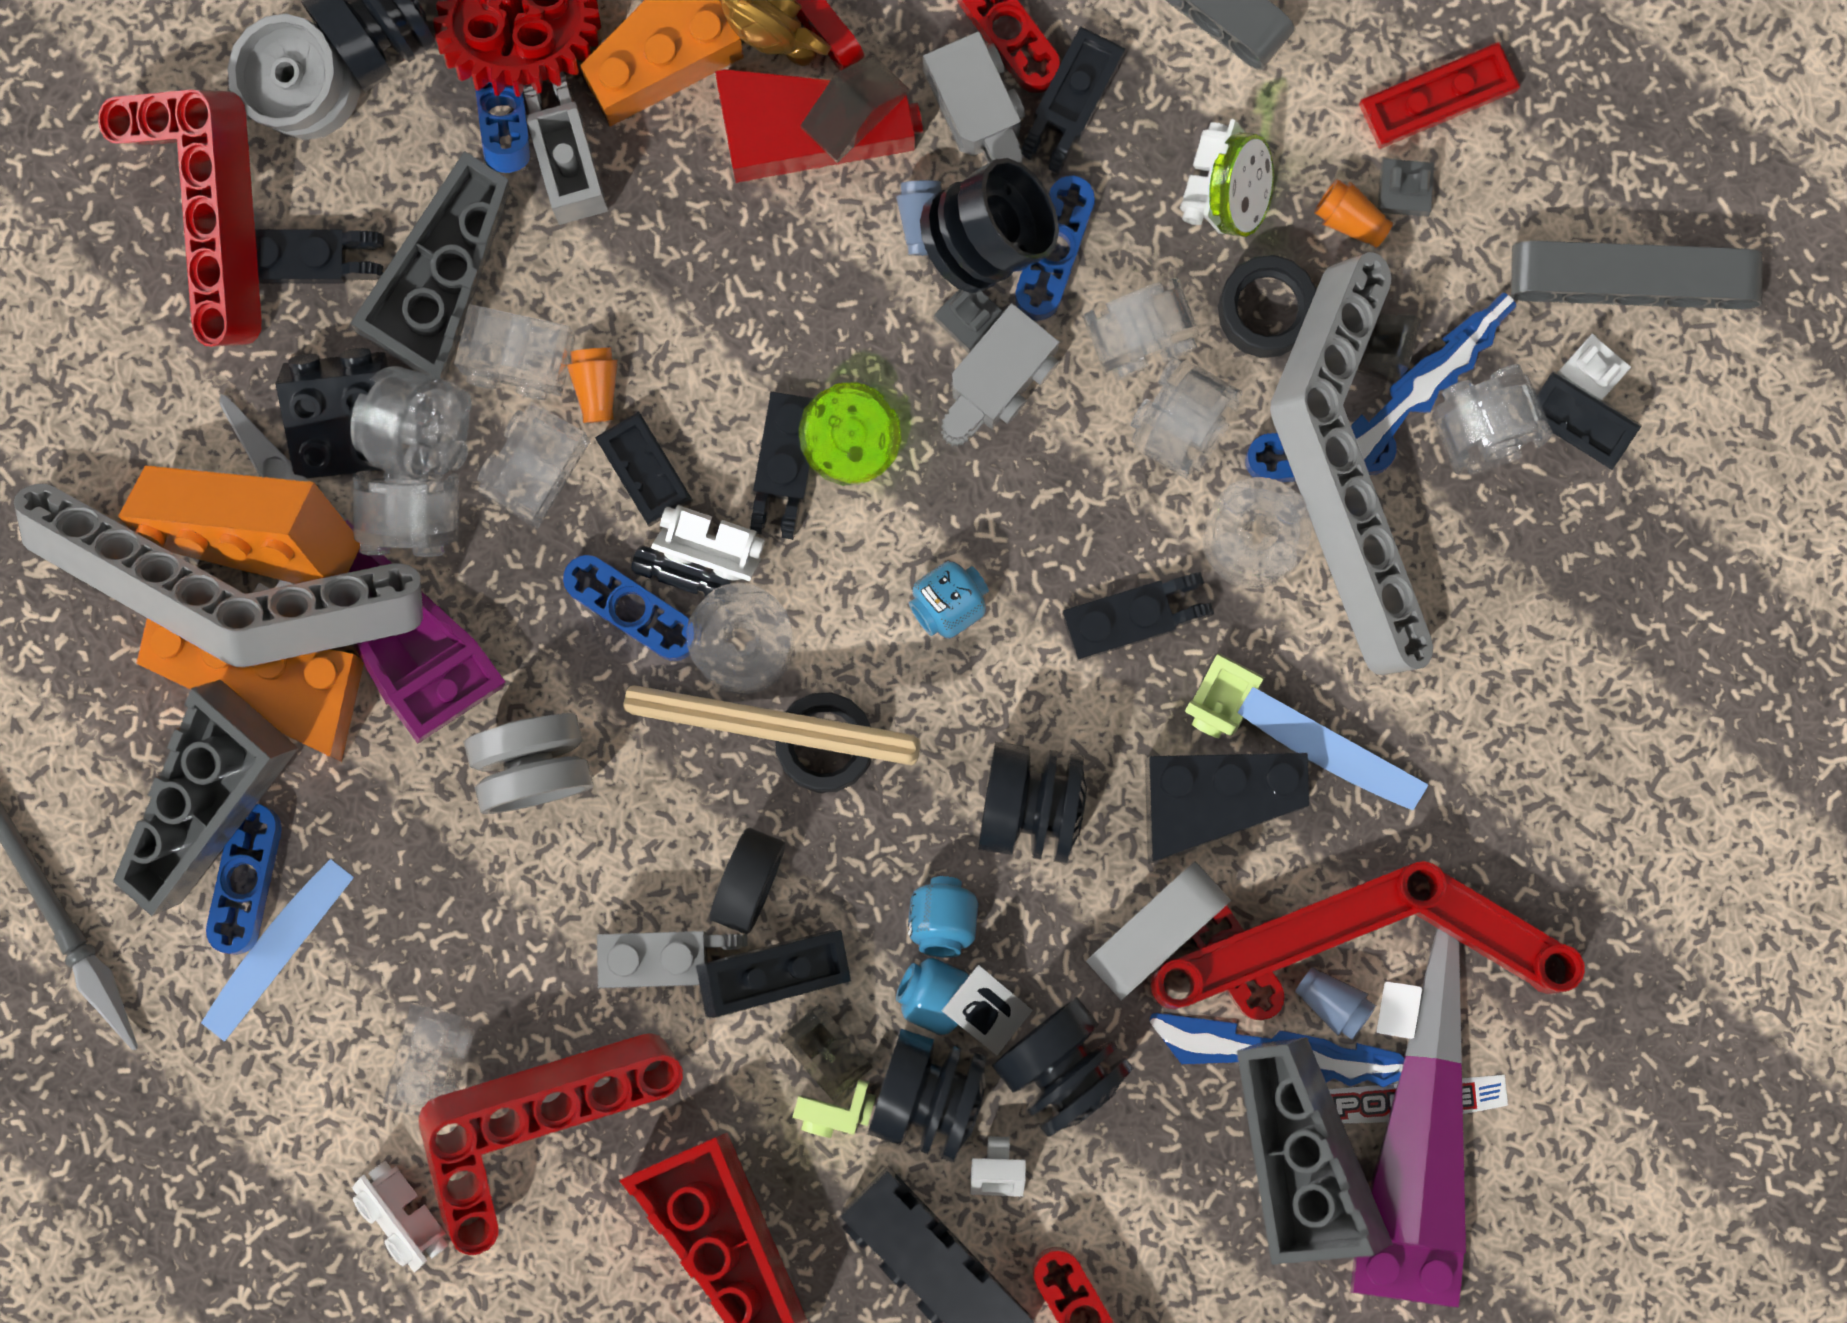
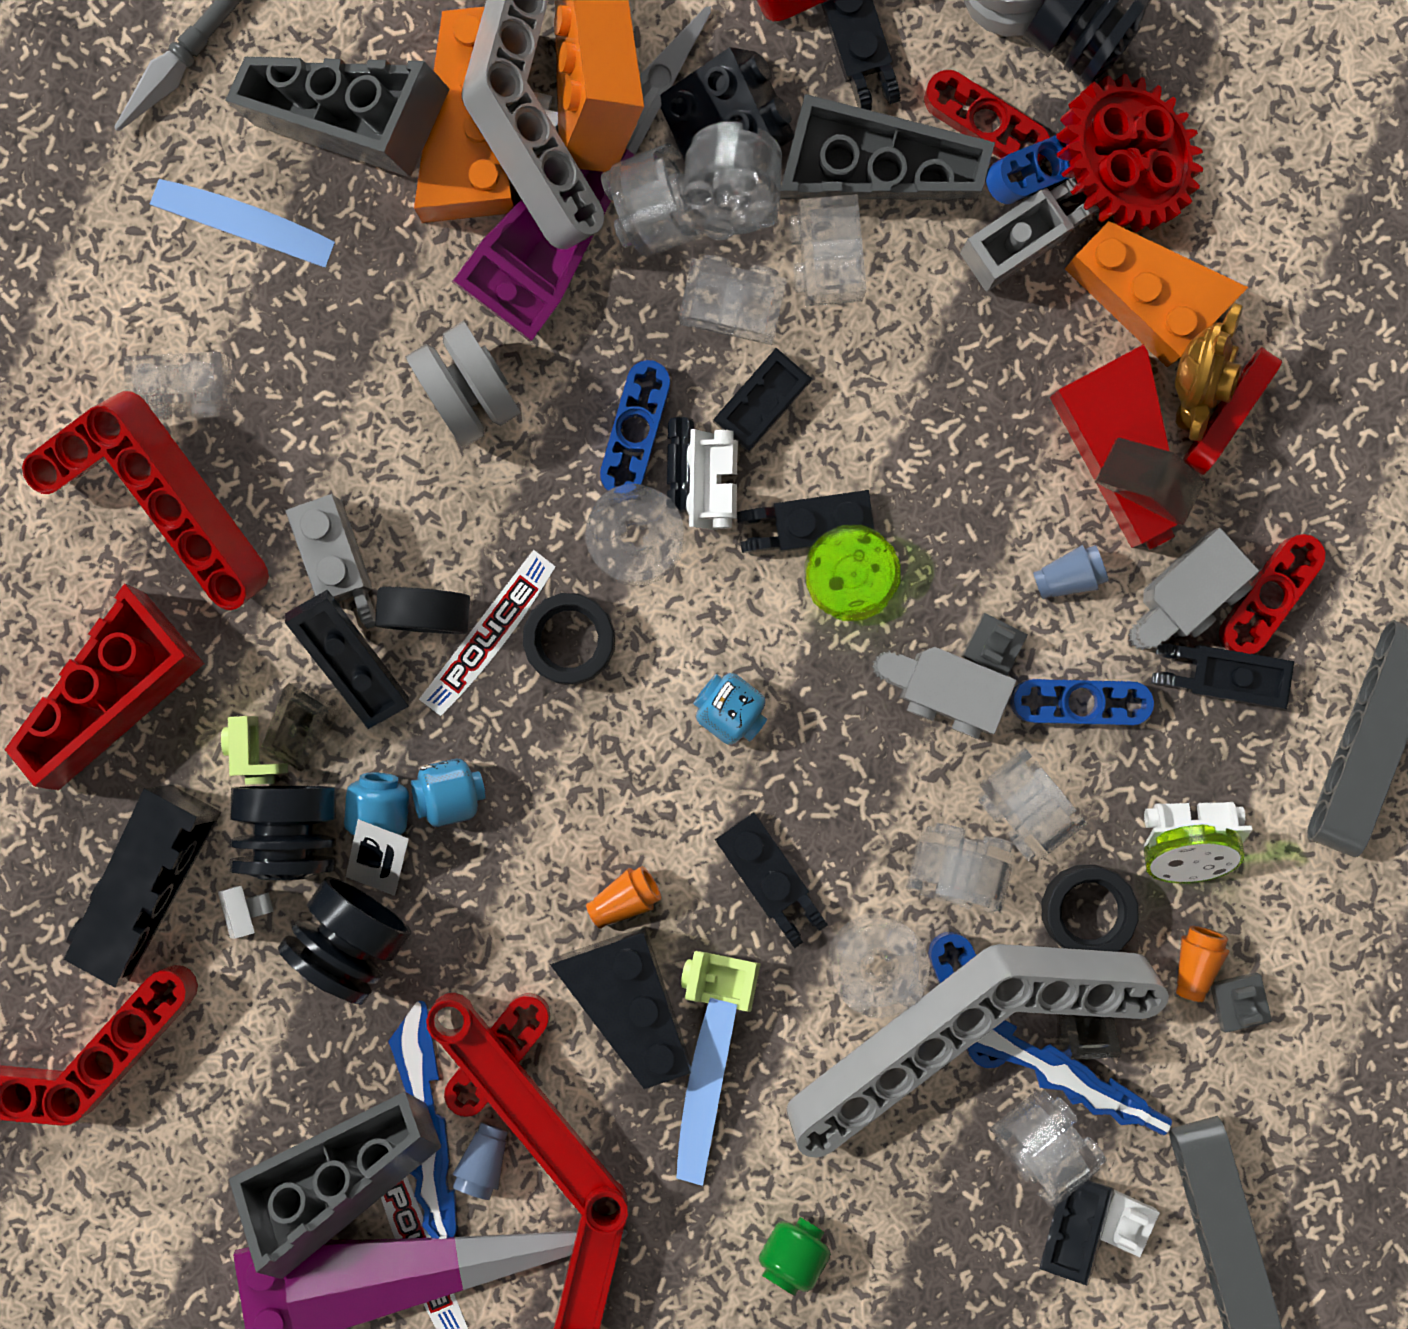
camera: 70 degrees right, 5 degrees up
(252, 920) = (275, 159): blue beam -> none
(406, 1234) = (53, 388): white hinge -> none
(434, 133) = (983, 100): none -> red beam
(594, 382) = (825, 331): orange cone -> none
(772, 725) = (565, 589): tan axle -> none
(792, 826) = (488, 634): none -> sticker
(989, 225) = (1080, 637): black wheel -> none
(1032, 802) = (569, 841): black wheel -> none
(1109, 770) = (624, 898): none -> orange cone
(1158, 930) = (493, 987): light grey beam -> none
(1399, 1010) = (494, 1220): white sticker -> none
(1439, 95) = (1337, 1007): red tile -> none
(1527, 711) = (794, 1256): none -> green head

